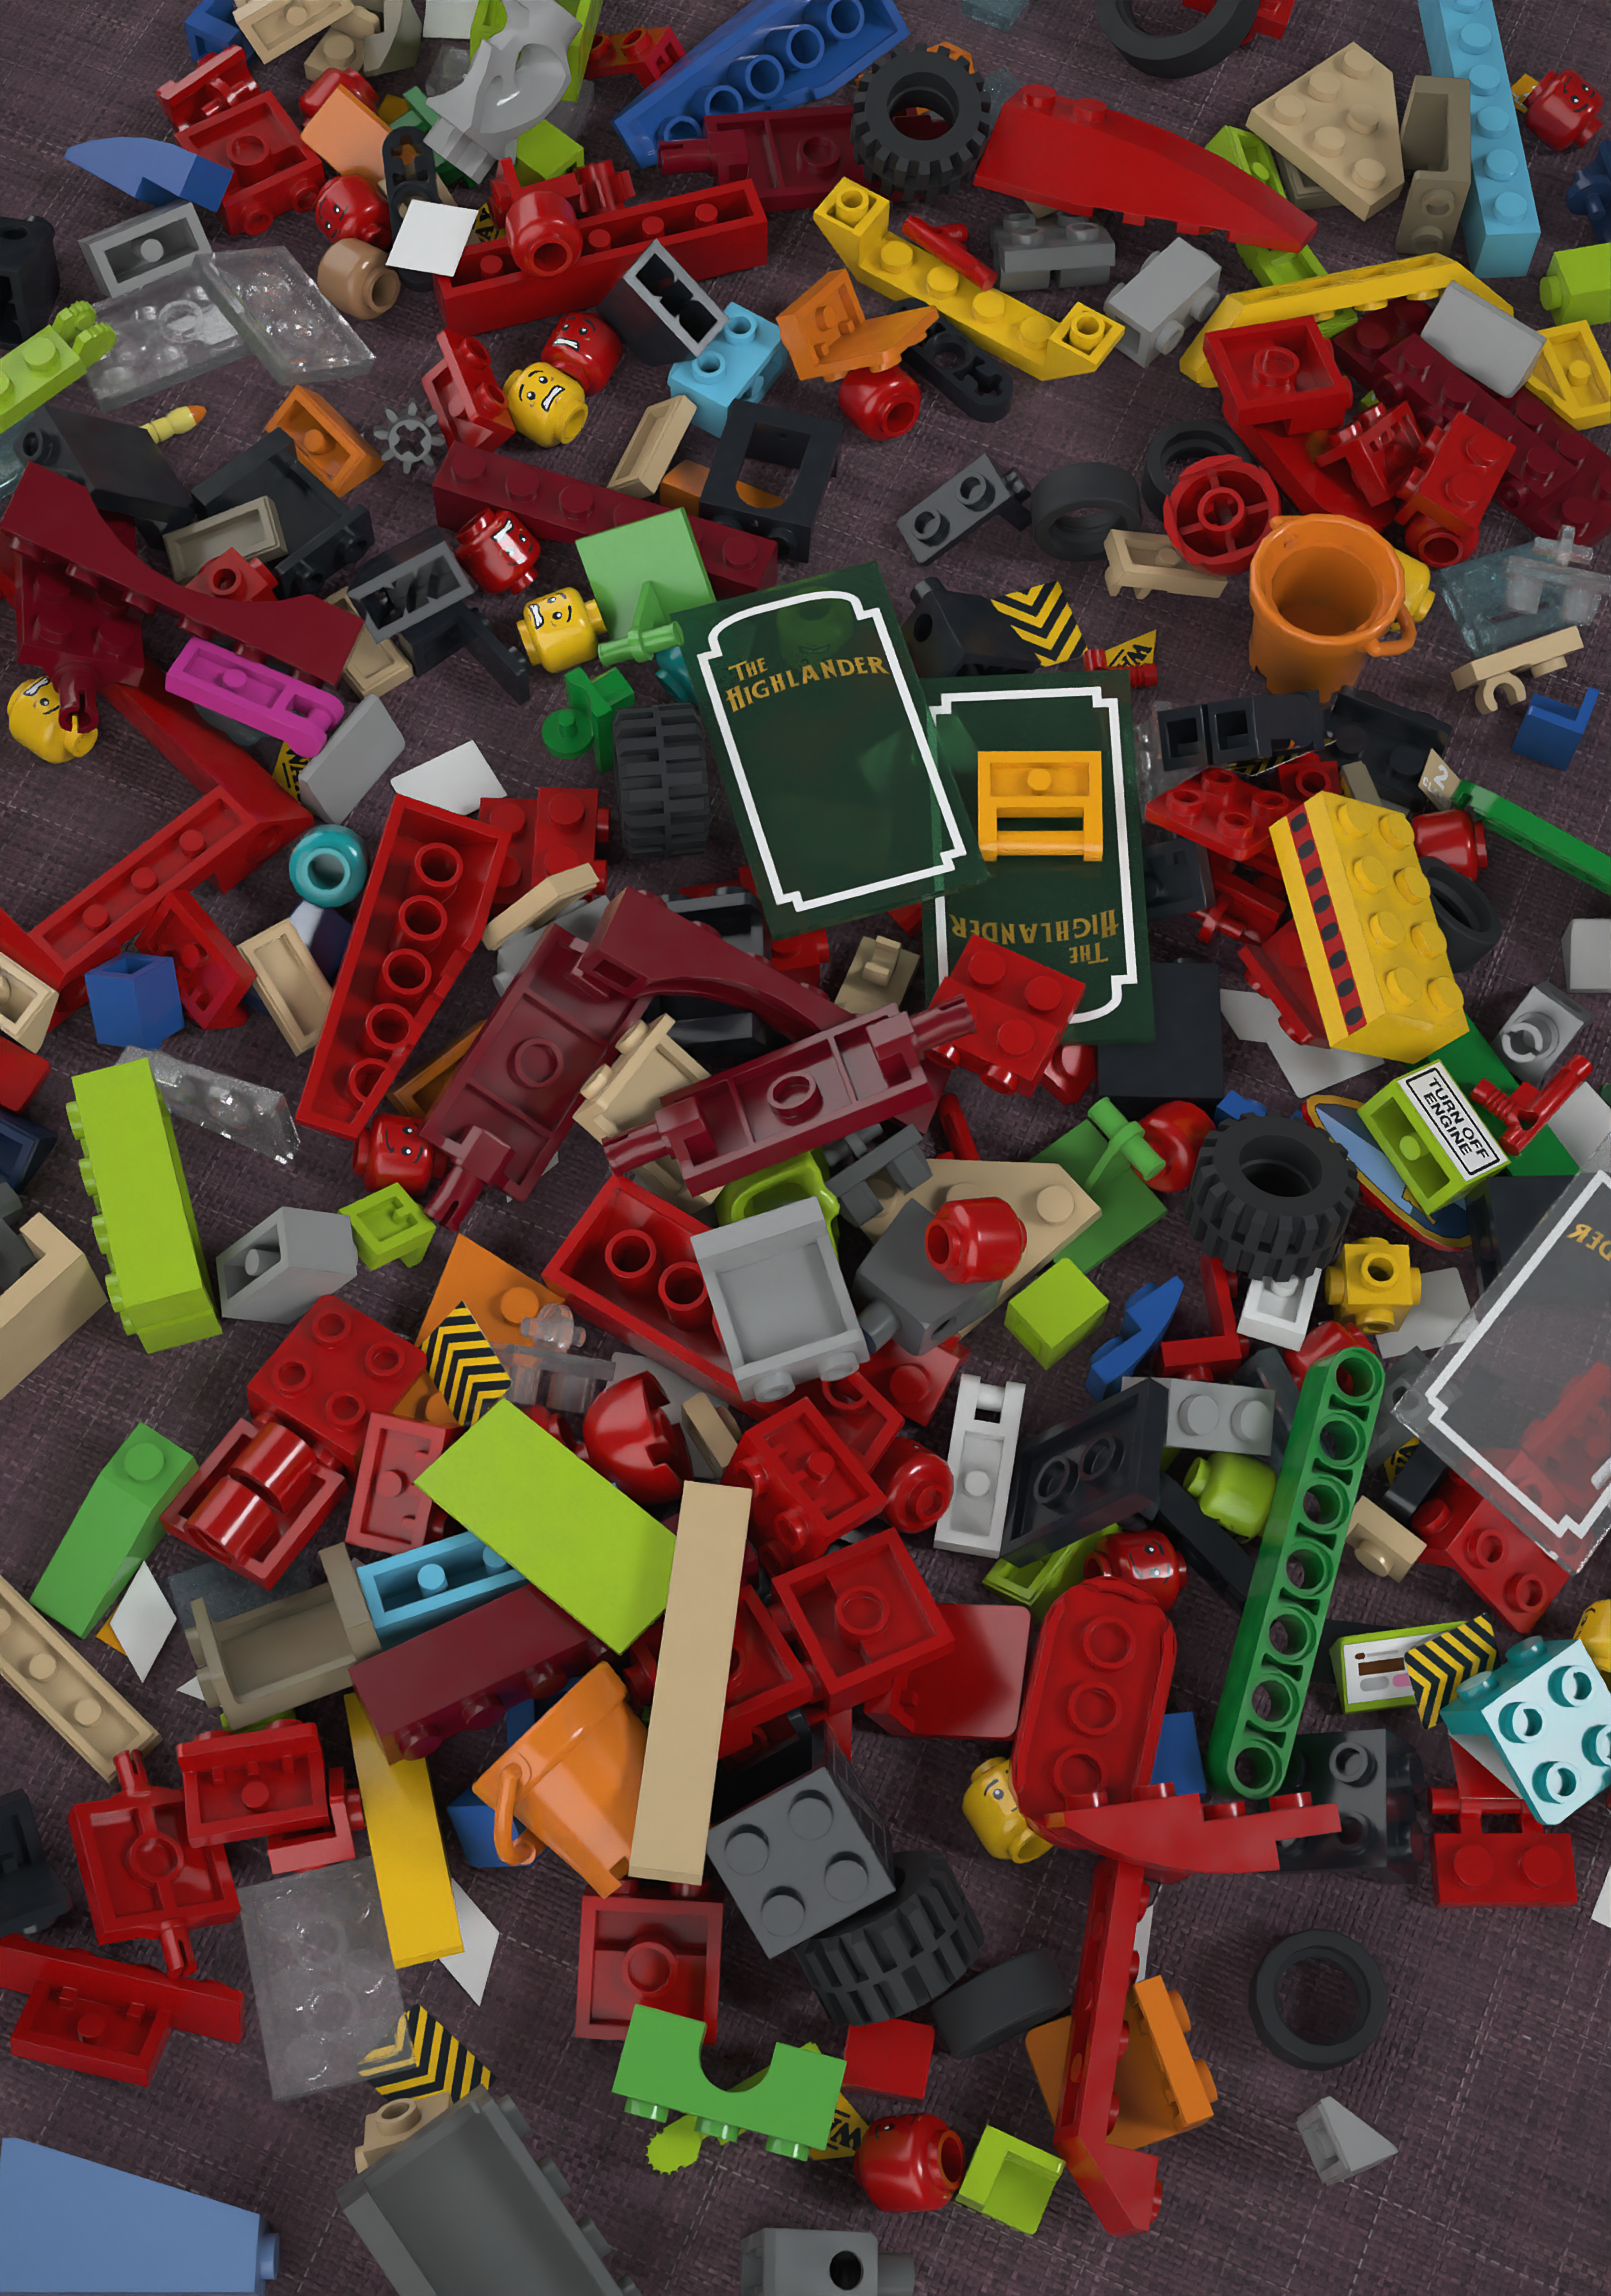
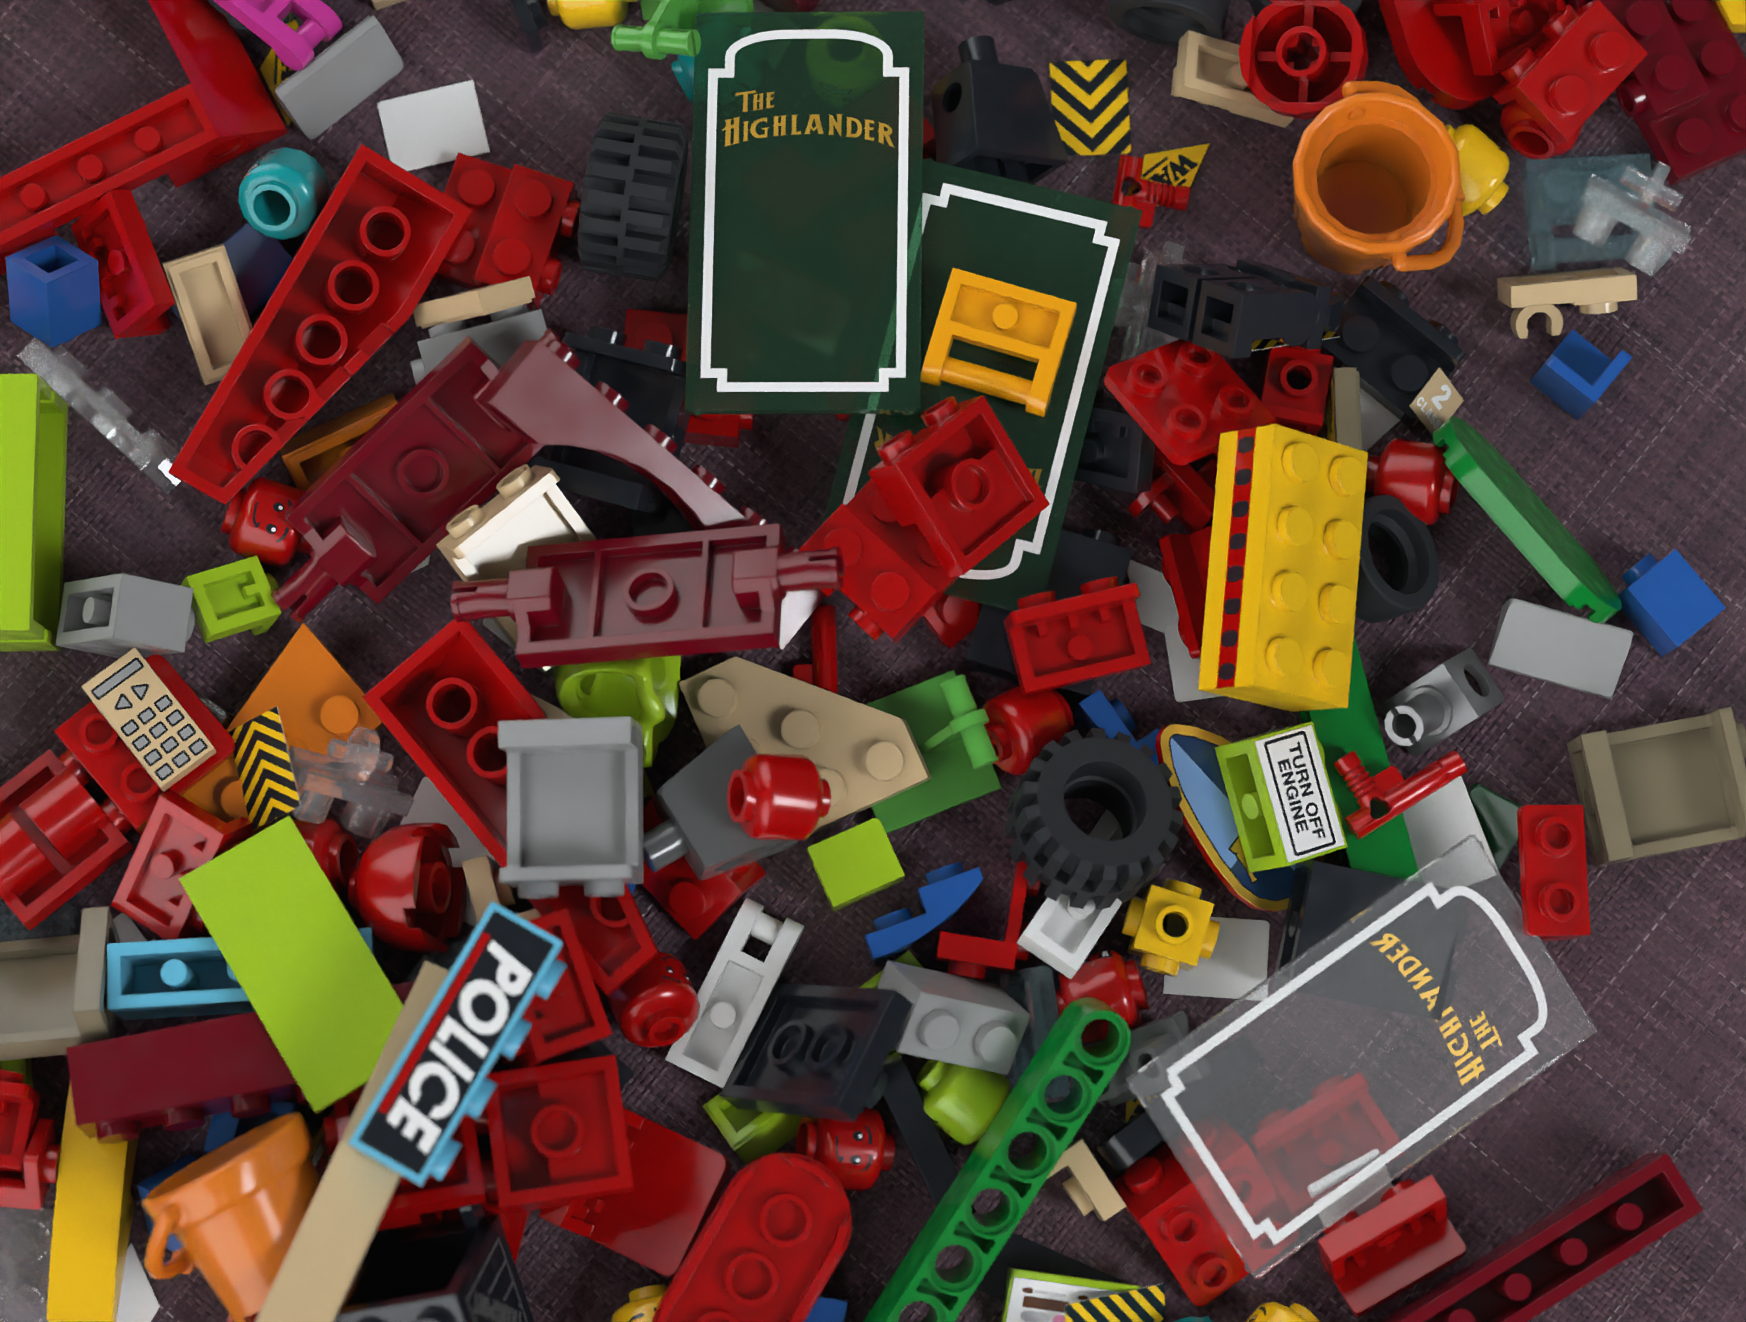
camera: 15 degrees right, 15 degrees up
(339, 1346) = (149, 719): none -> tile
(588, 717) = (565, 111): green hips -> none
(748, 1536) = (457, 1045): none -> brick
(877, 976) = (787, 472): tan plate -> none
(899, 1157) = (688, 687): dark grey hips -> none
(1047, 925) = (958, 482): none -> red plate
(1197, 1039) = (1076, 636): none -> red bracket

